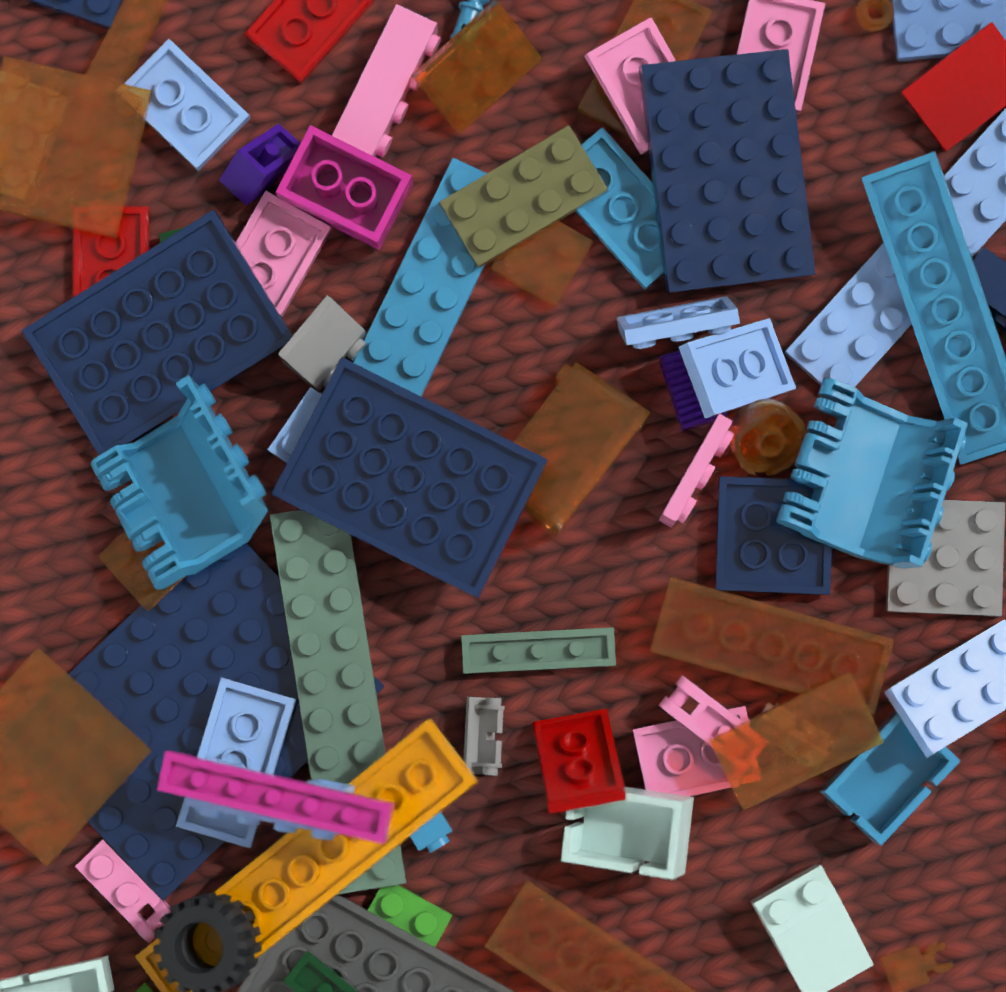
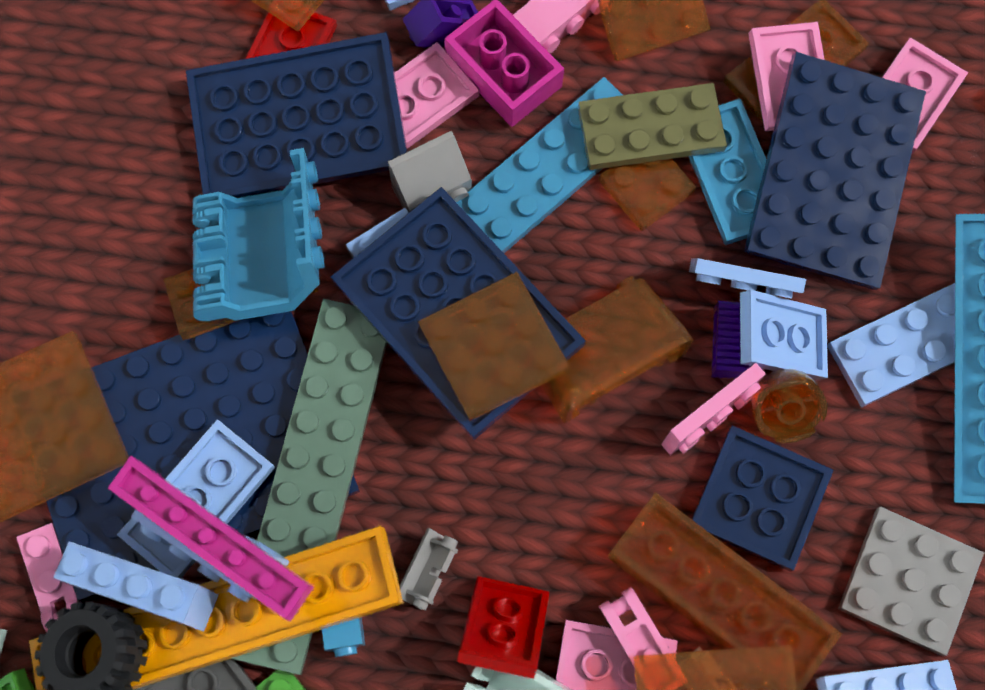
camera: 20 degrees right, 10 degrees down
(220, 867) = (136, 586): none -> light blue brick
(461, 501) = (493, 346): none -> clear orange plate
(538, 650) = (509, 514): sand green plate -> none
(873, 478) = (871, 481): dark azure hinge -> none

